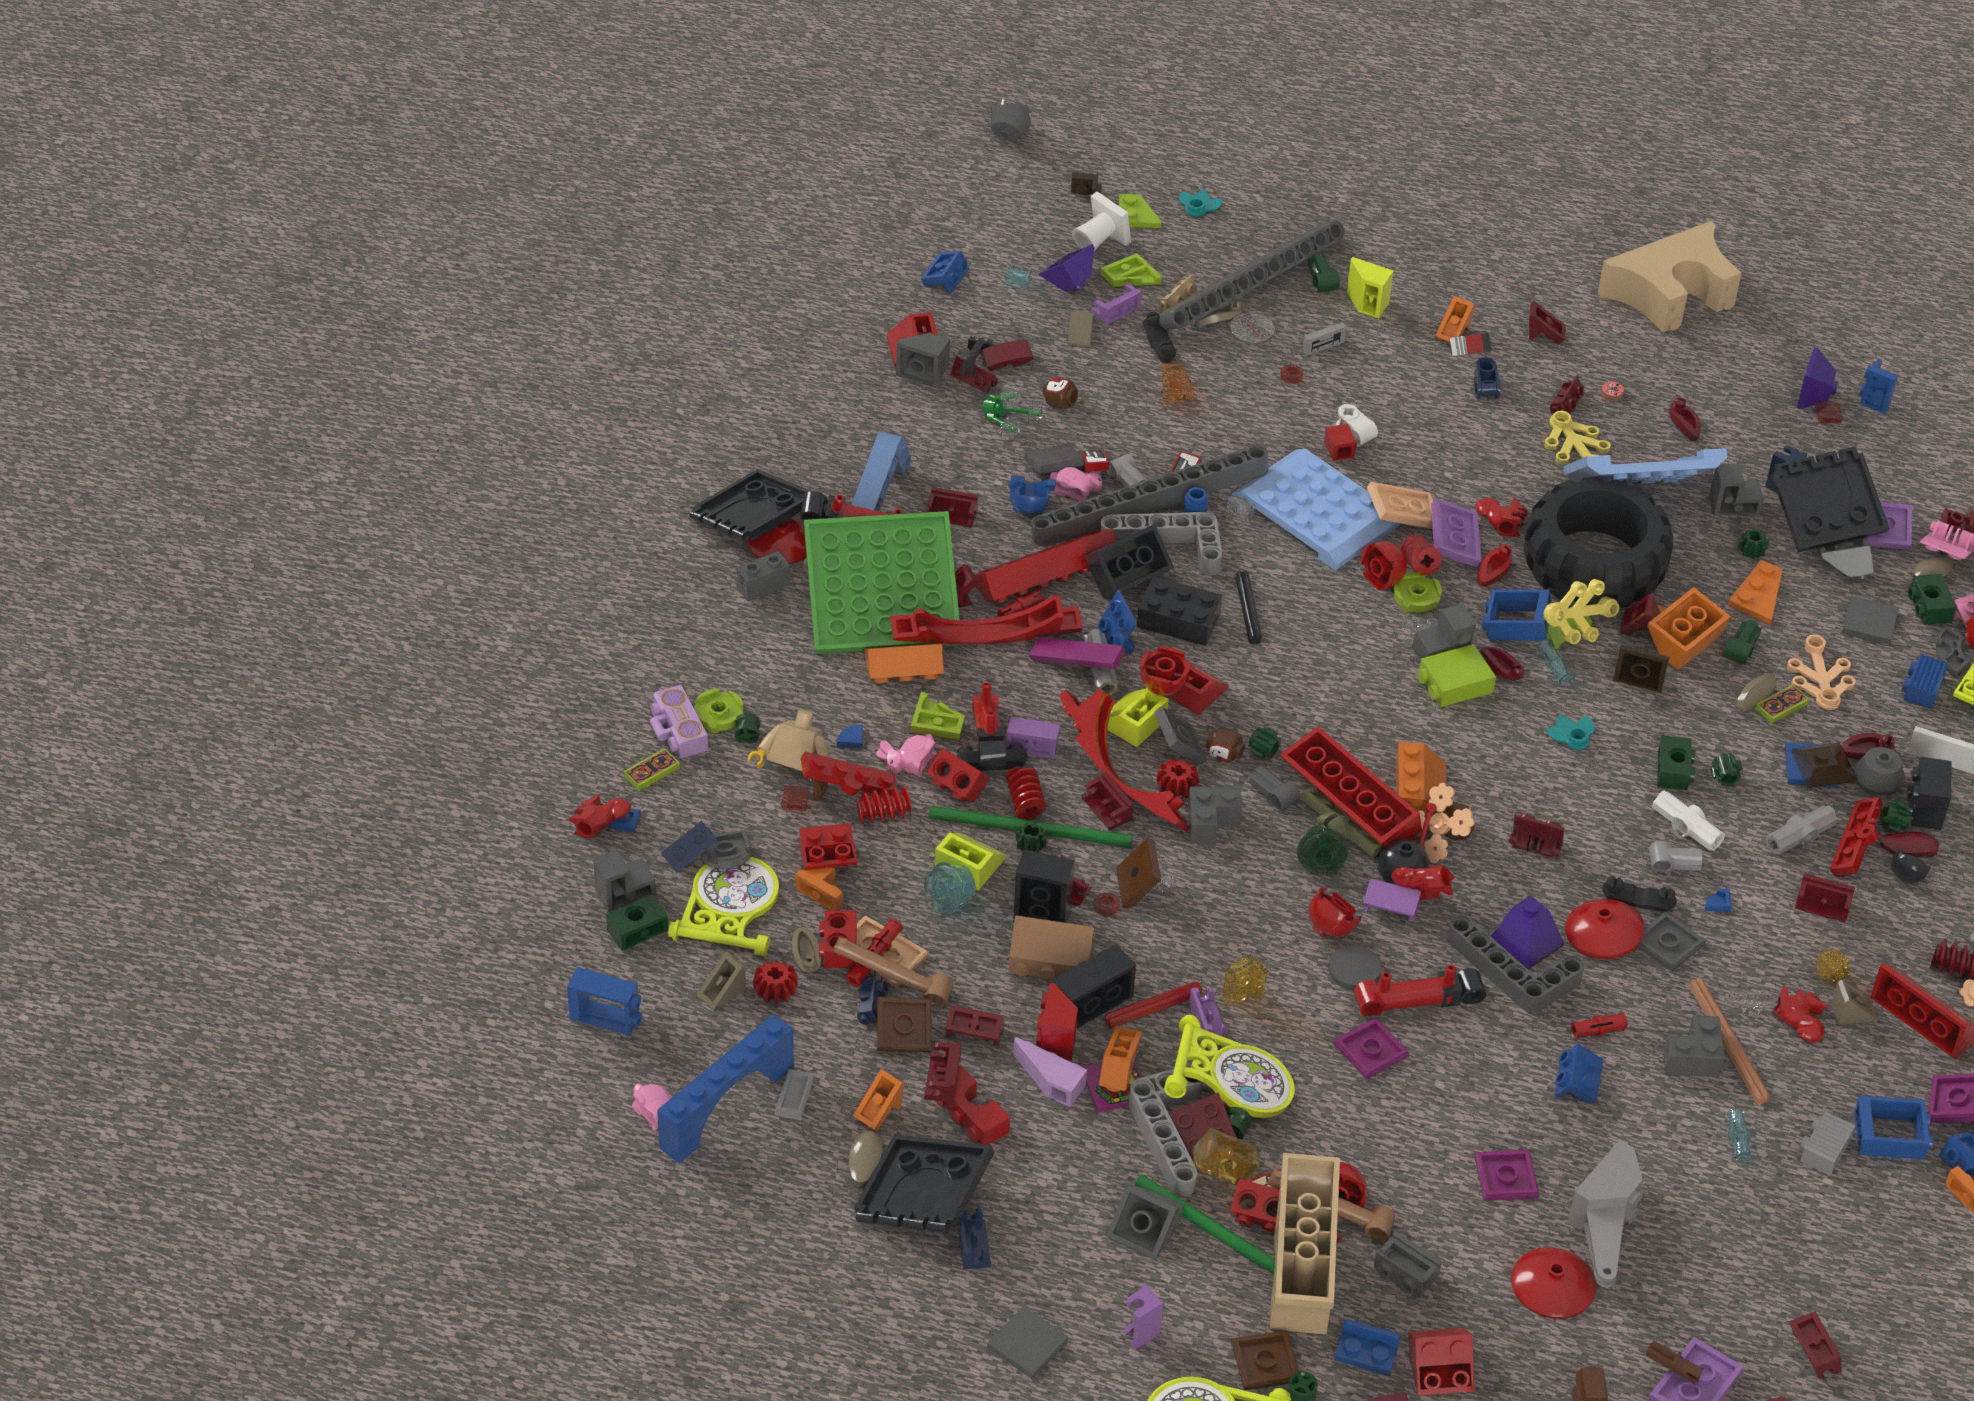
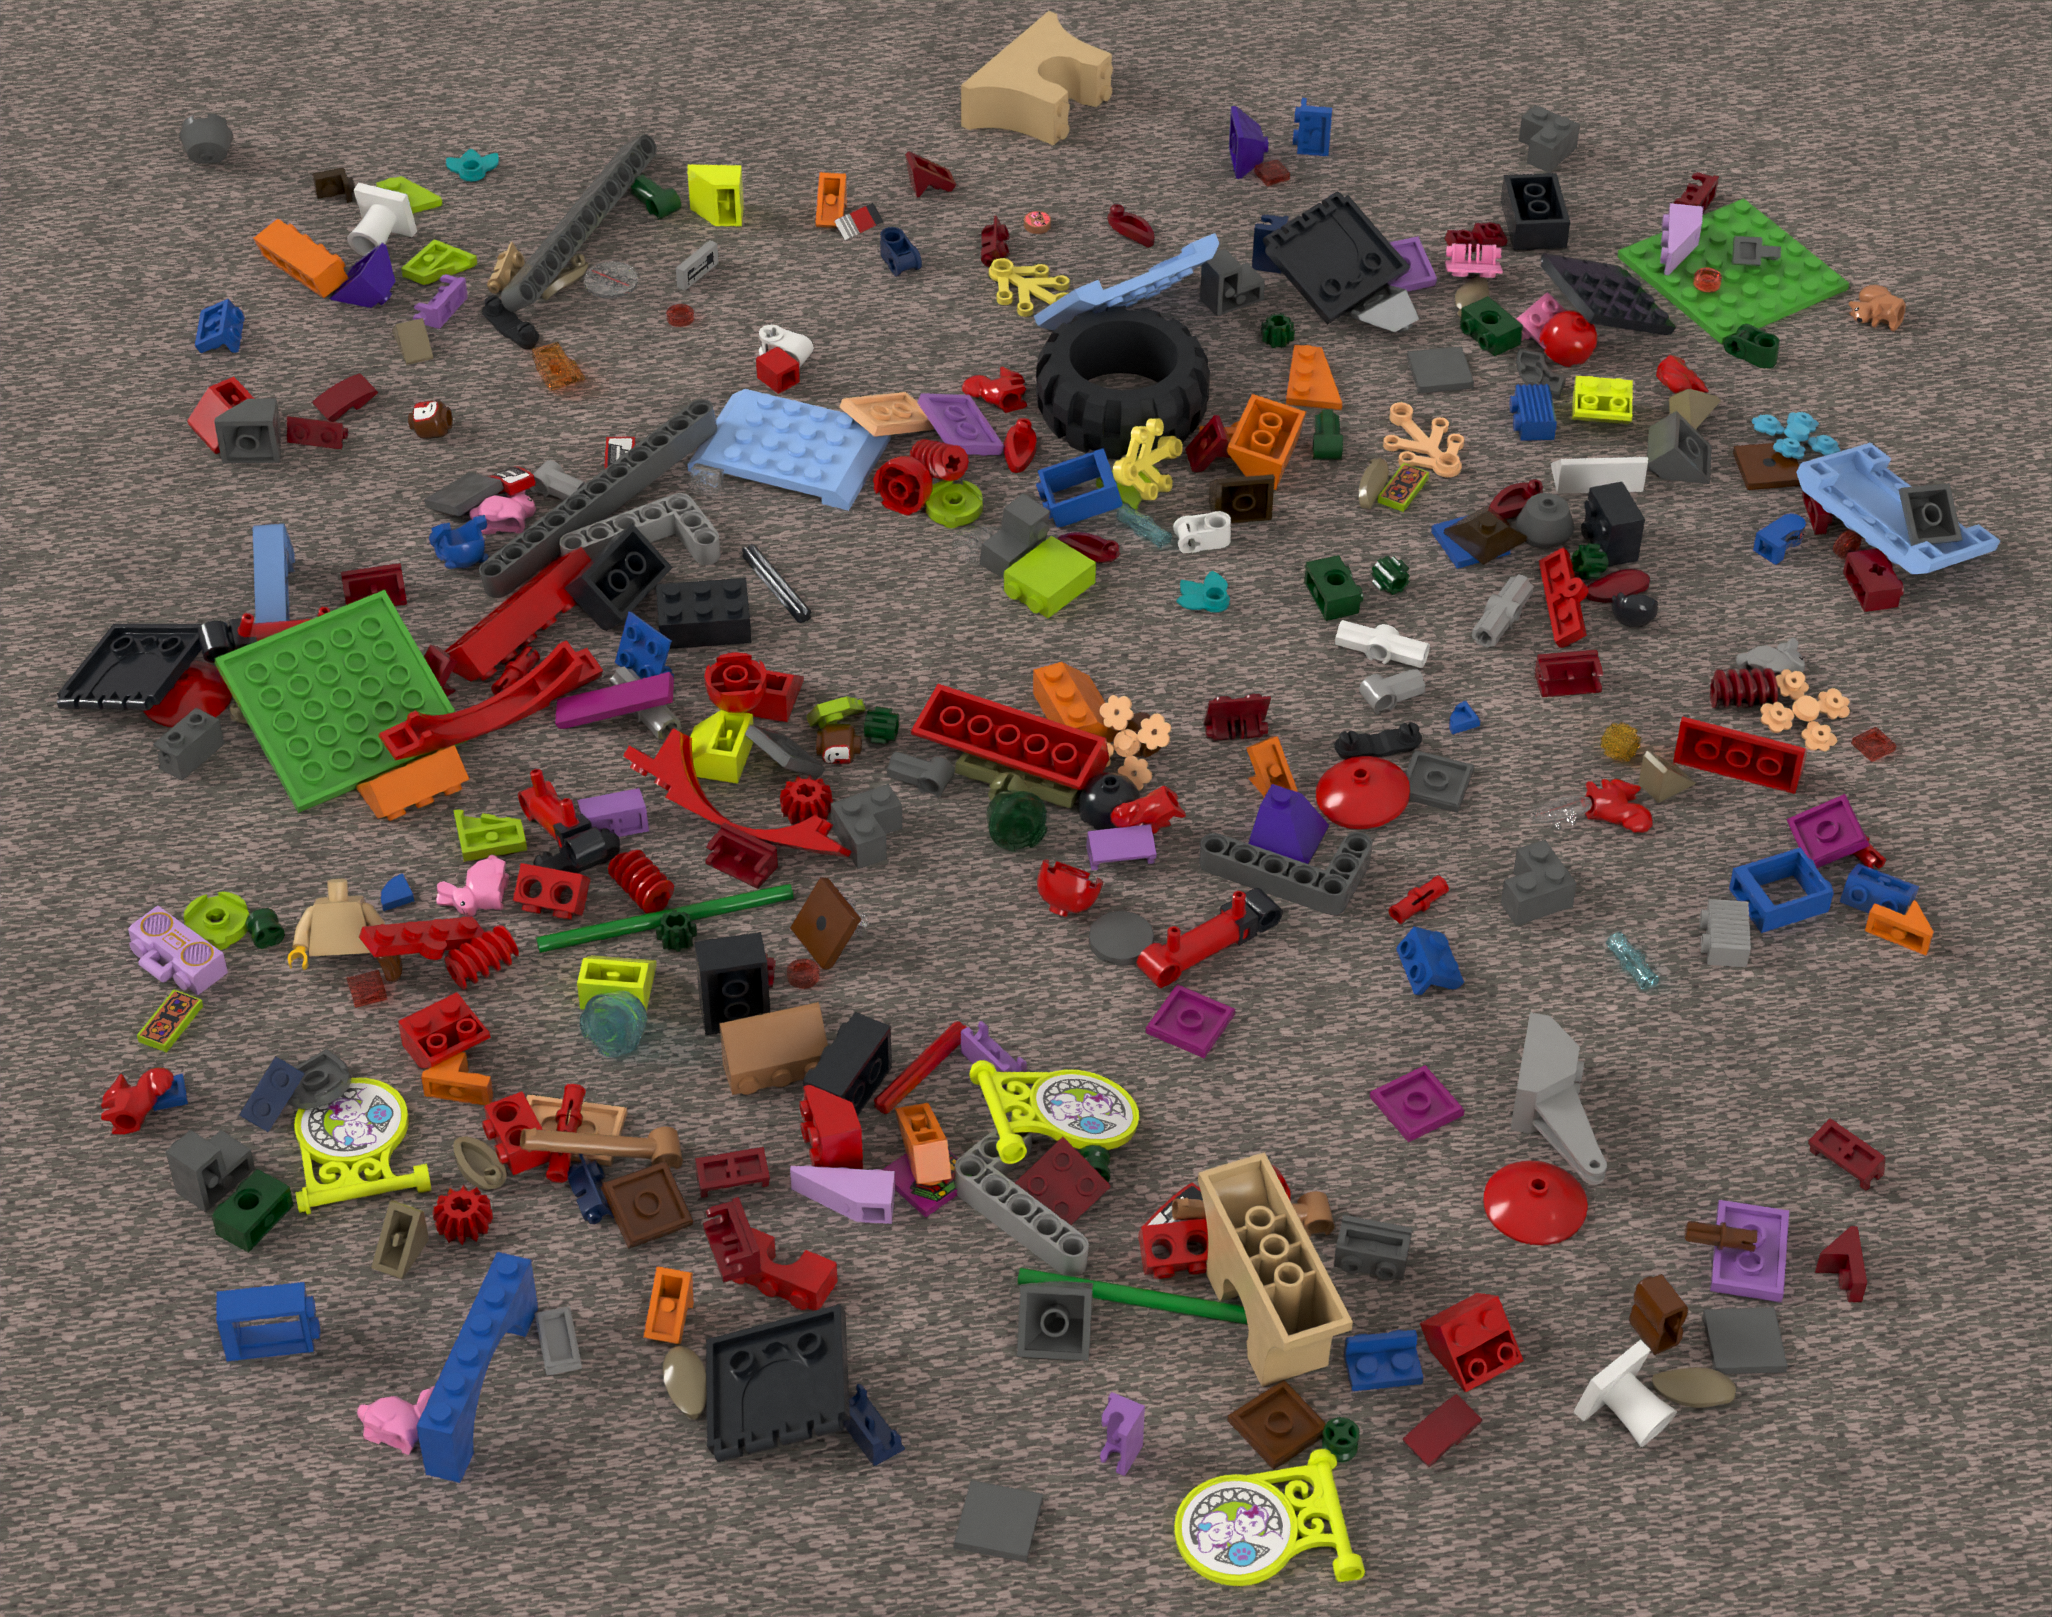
camera: 25 degrees left, 0 degrees up
(976, 347) = (305, 400): black hinge -> none
(997, 405) = (362, 460): clear plant -> none
(1018, 276) = (309, 307): clear light blue bush -> none
(1031, 236) = (301, 258): none -> orange brick
(1196, 500) = (656, 485): blue brick -> none
(1225, 1156) = (1109, 1208): clear yellow brick -> none
(1233, 718) = (834, 710): none -> lime wing
(1245, 978) = (1017, 995): clear yellow bracket -> none
(1430, 808) = (1111, 729): red hinge -> none
(1541, 882) = (1270, 766): none -> orange slope
(1599, 683) = (1205, 531): none -> white piece
(1731, 1043) = (1584, 878): nougat axle -> none

